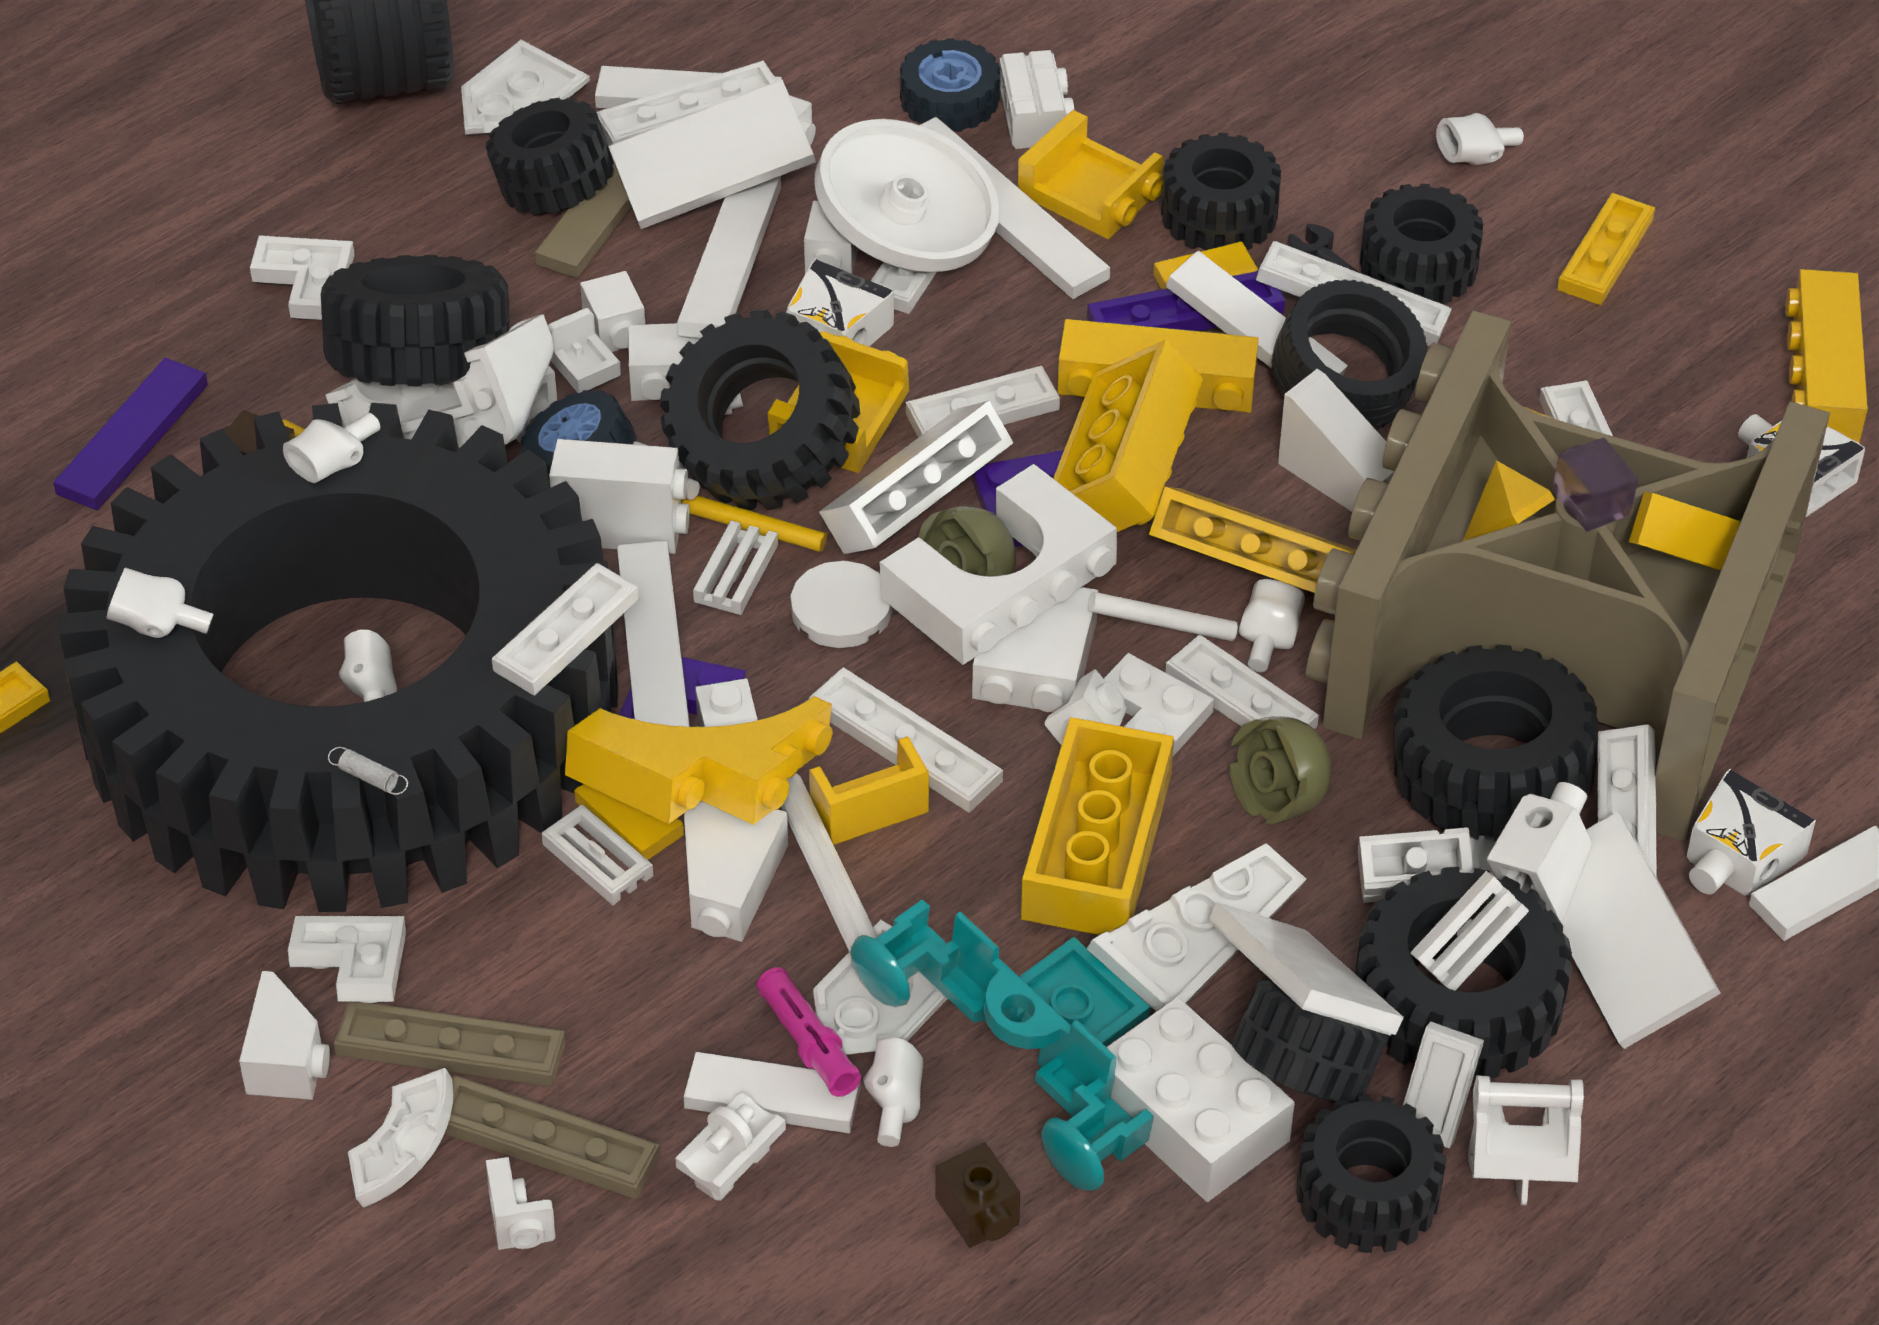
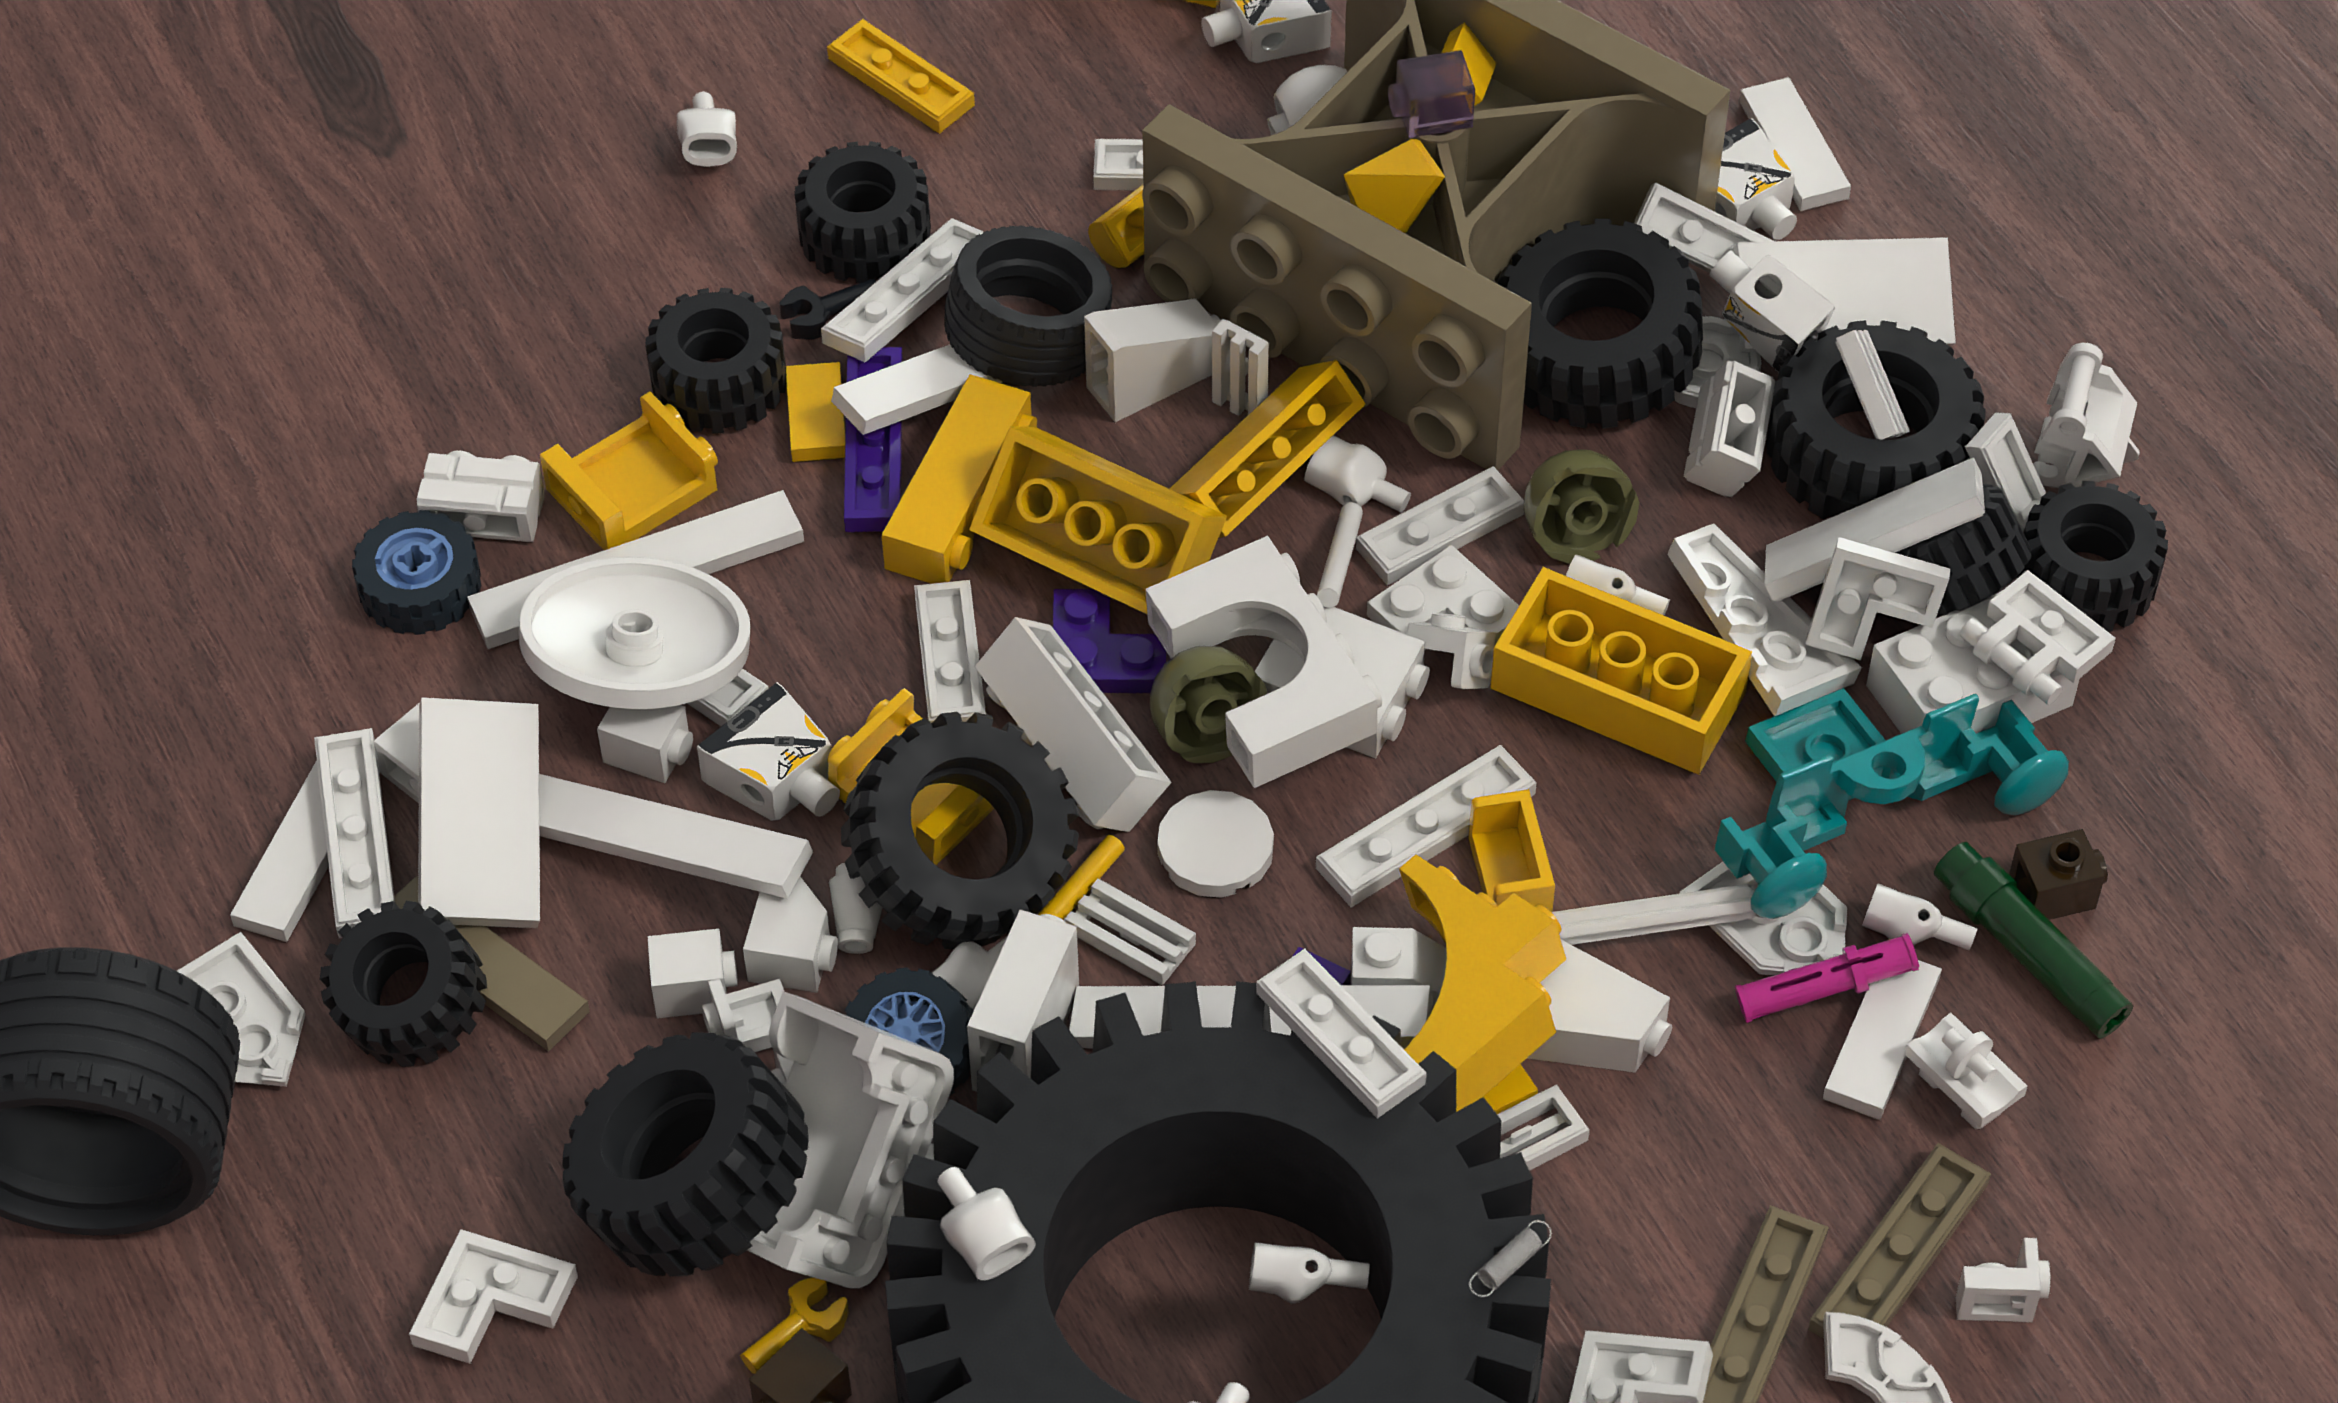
camera: 75 degrees left, 5 degrees up
(899, 1186) = (1992, 899): none -> dark green piece
(1199, 811) = (1615, 583): none -> white piece
(1216, 972) = (1868, 582): none -> white plate
(1218, 1114) = (2048, 626): none -> white plate
(1334, 499) = (1232, 366): none -> white tile

